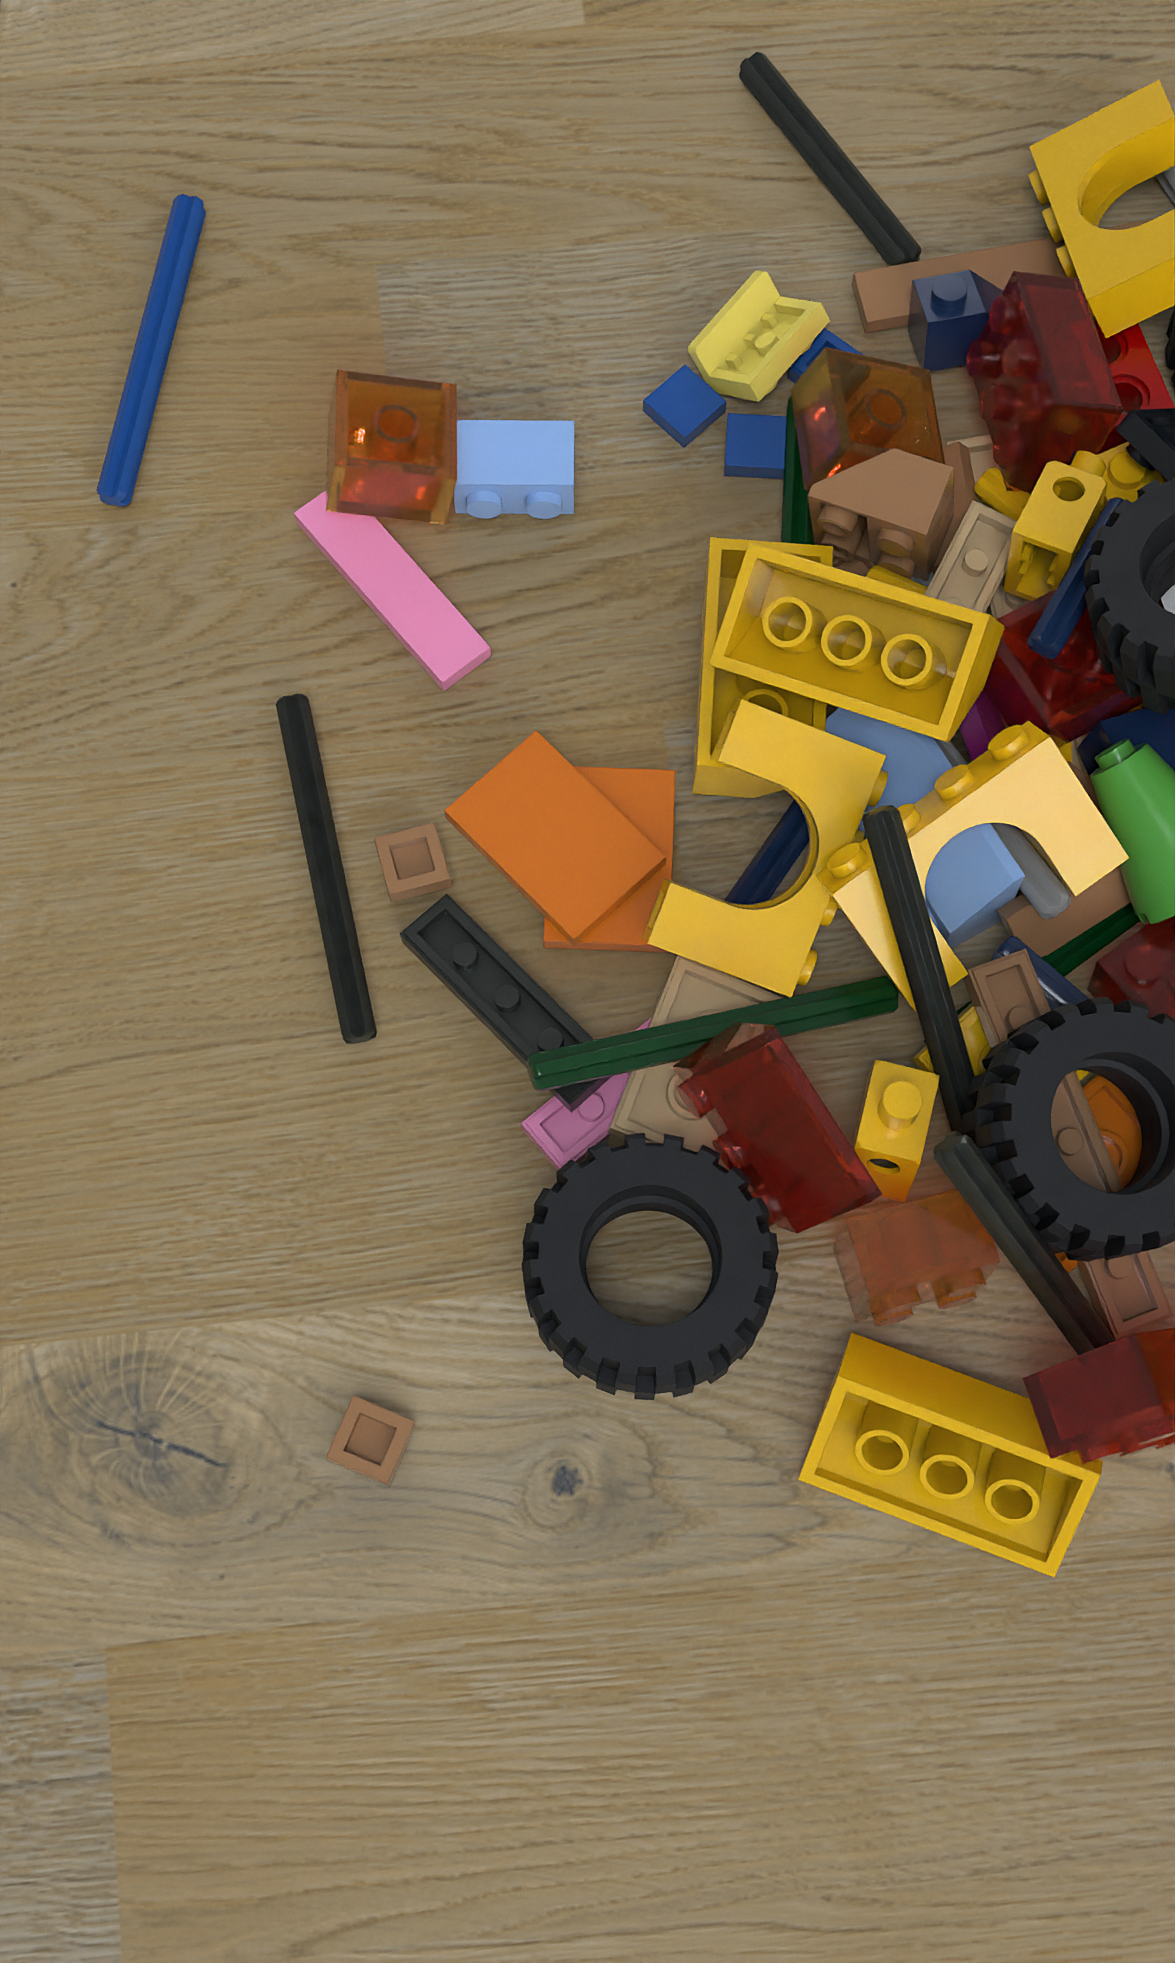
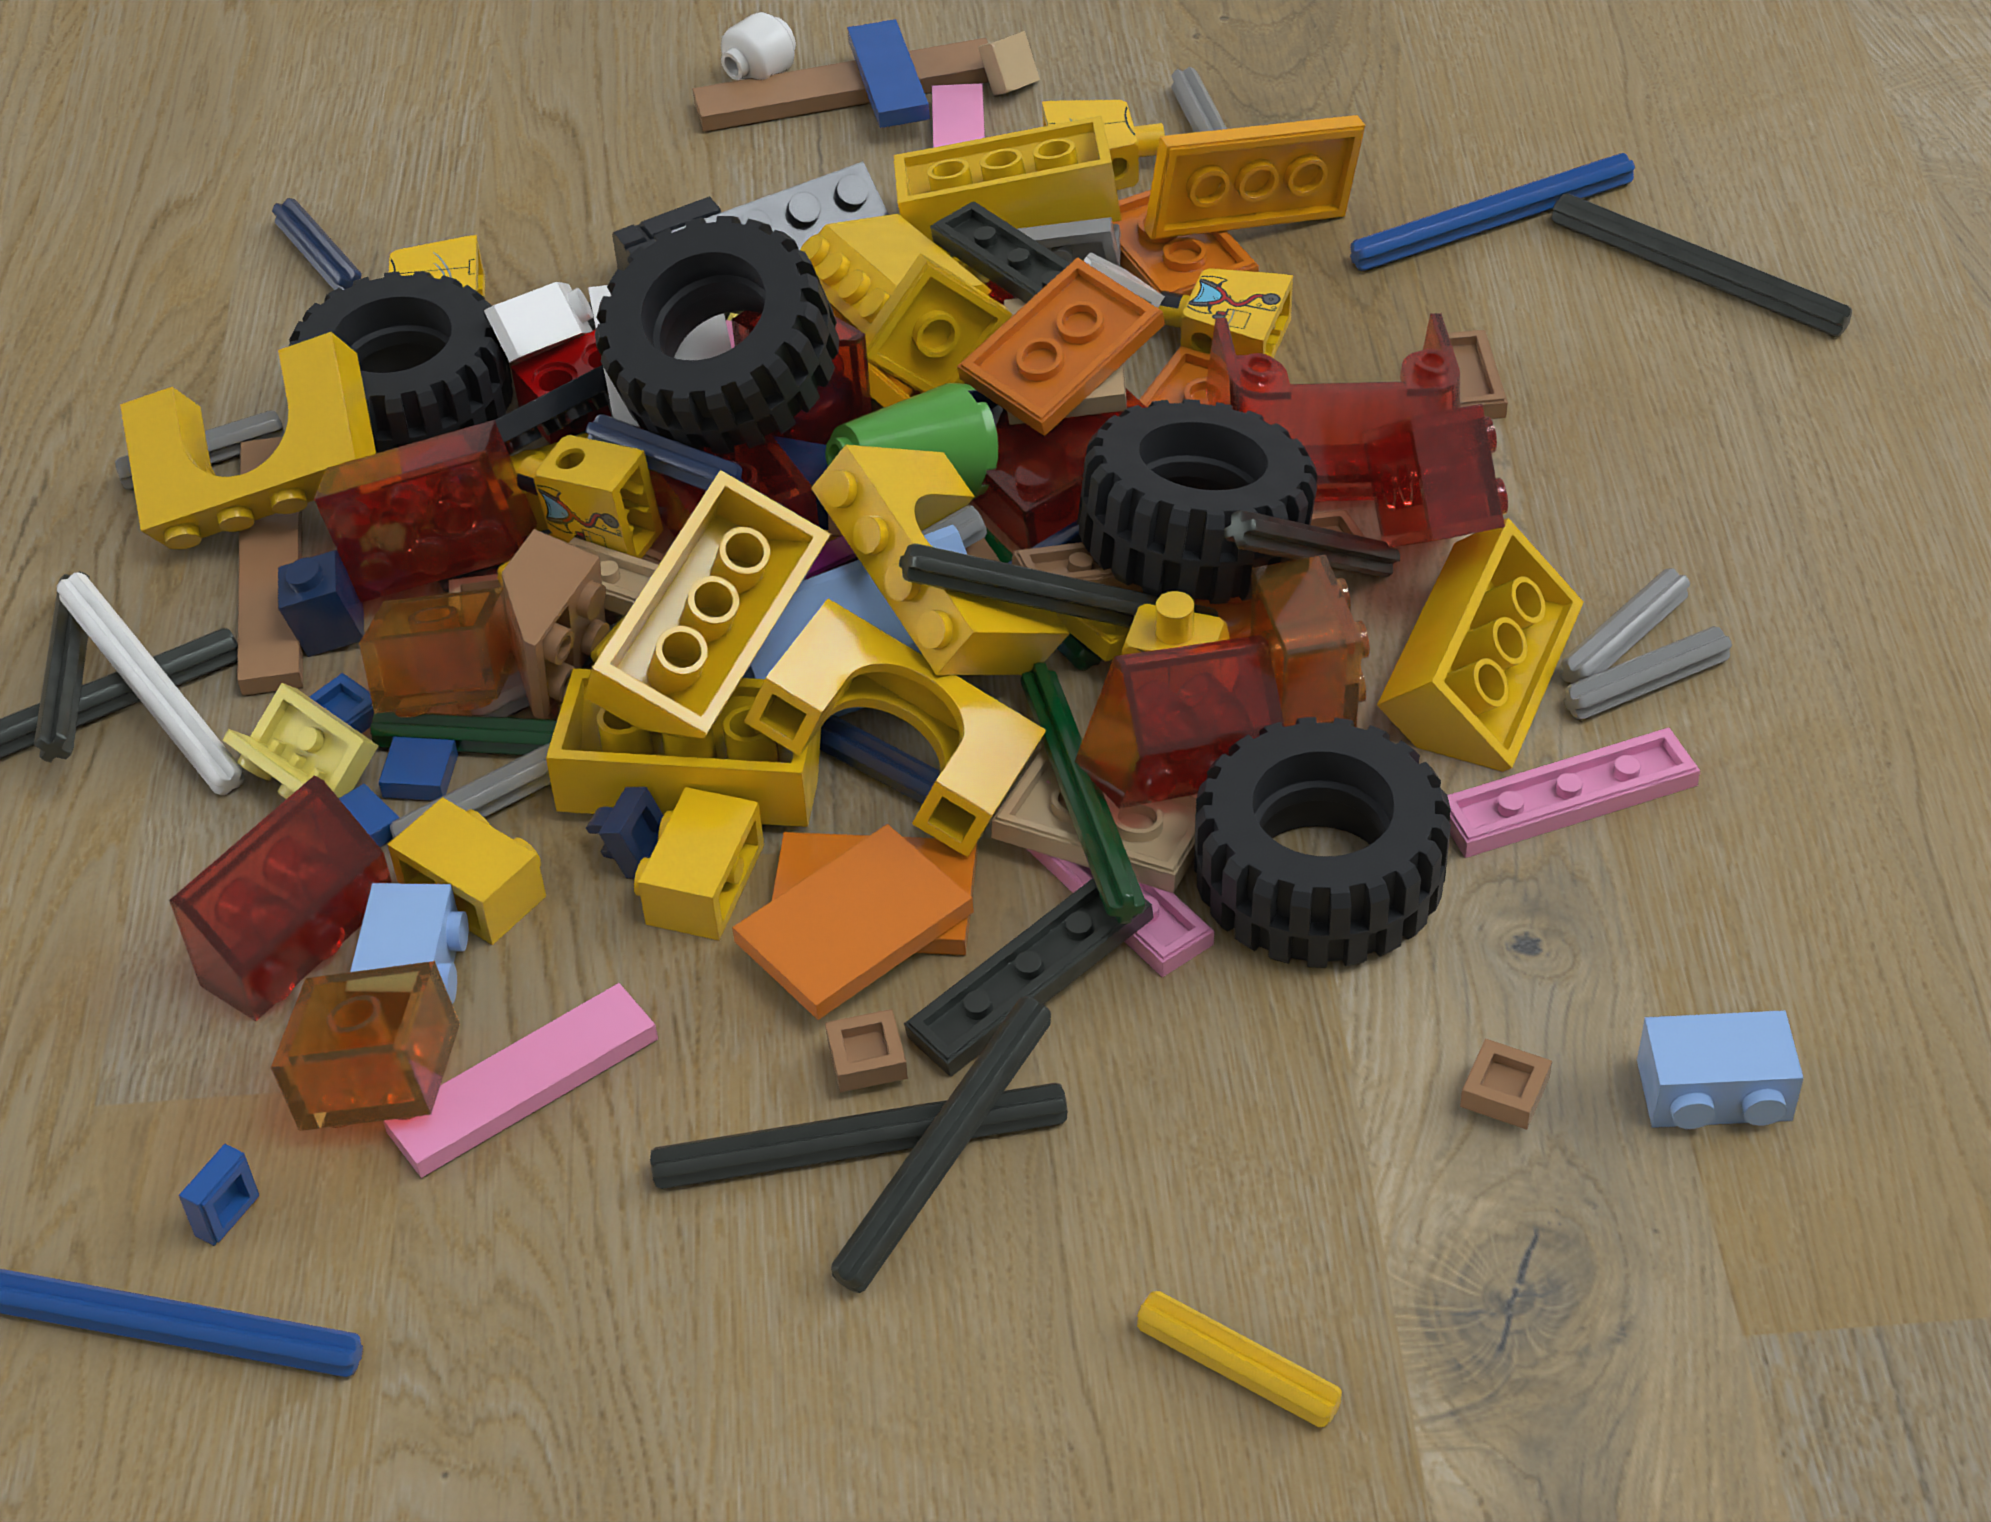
camera: 85 degrees left, 25 degrees down
(83, 1192) = (1239, 1359): none -> yellow axle
(259, 369) = (219, 1195): none -> blue tile
(298, 931) = (940, 1145): none -> pearl dark grey axle
(378, 1649) = (1719, 1069): none -> light blue brick
(557, 354) = (279, 900): none -> clear red slope
(617, 503) = (489, 872): none -> yellow brick
(629, 698) = (700, 863): none -> yellow brick
(664, 635) = (628, 828): none -> dark blue tile
(706, 489) = (494, 789): none -> light grey axle
(765, 1538) = (1570, 791): none -> bright pink tile
(838, 190) = (150, 684): none -> white axle
(851, 123) = (61, 685): none -> pearl dark grey axle
(940, 1638) = (1647, 673): none -> light grey axle
(1009, 1619) = (1626, 626): none -> light grey axle

